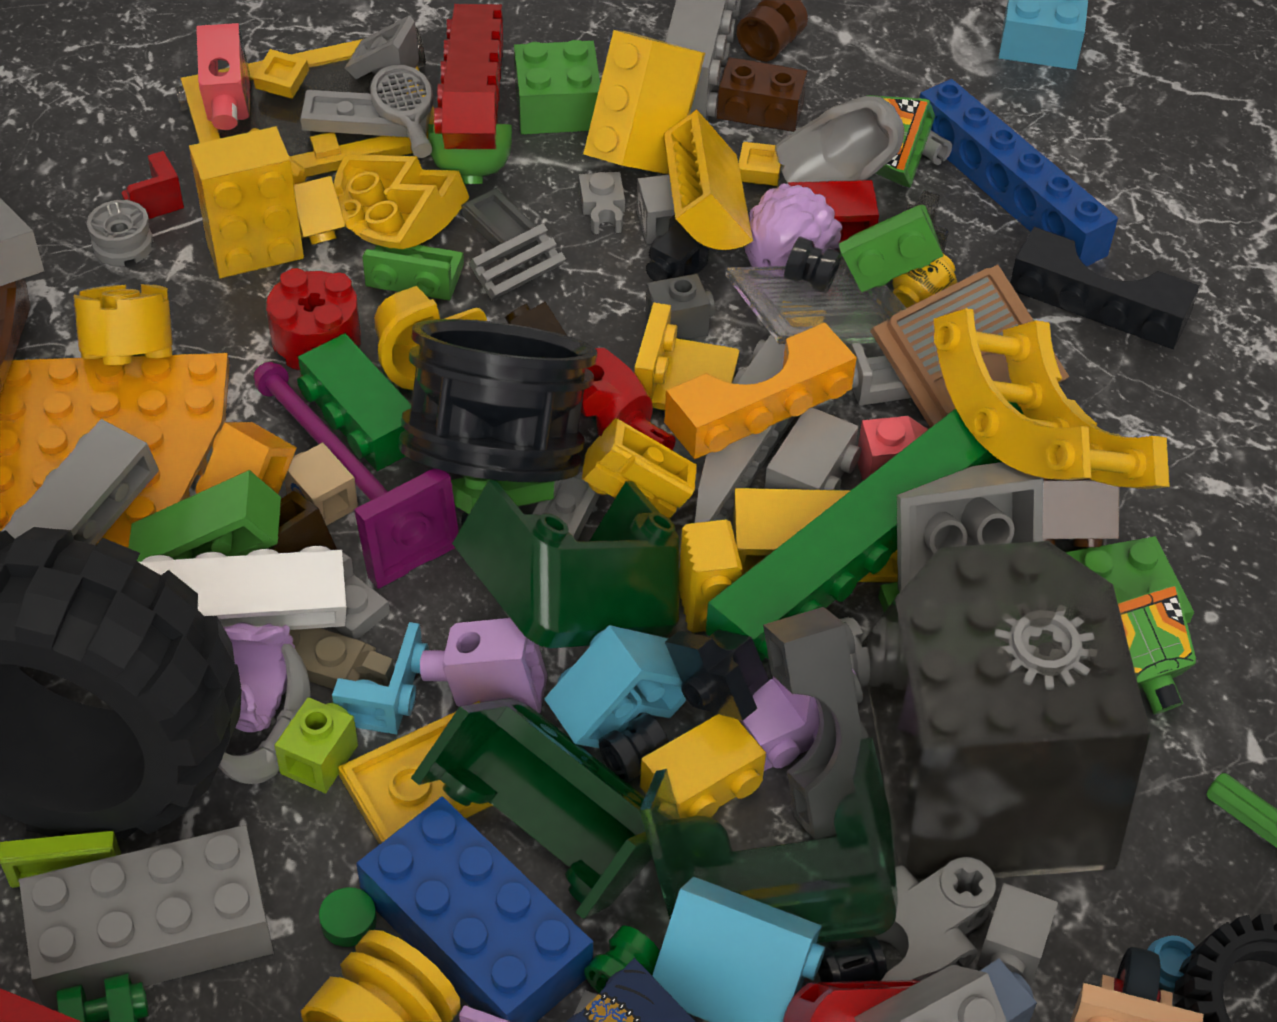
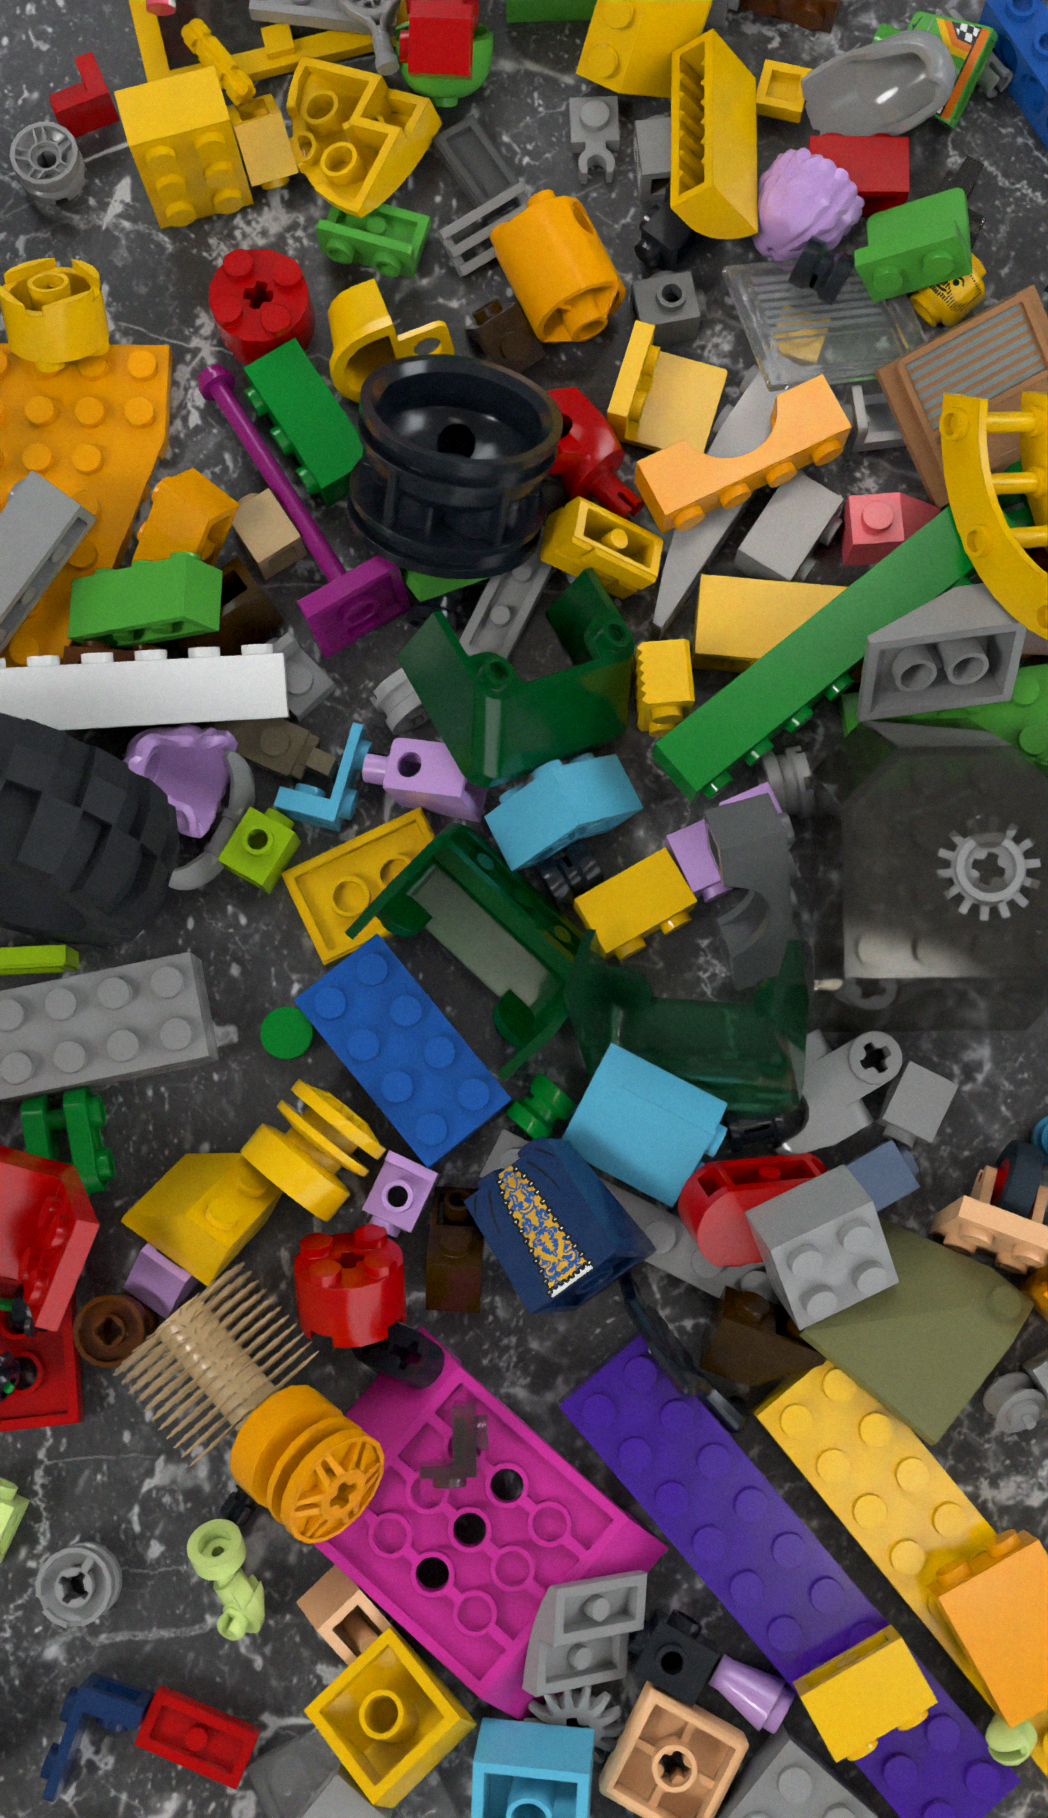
camera: 10 degrees right, 30 degrees up
(461, 598) = (399, 703): none -> light grey wheel
(580, 277) = (558, 268): none -> light orange cylinder
(718, 671) = (659, 815): black brick -> none

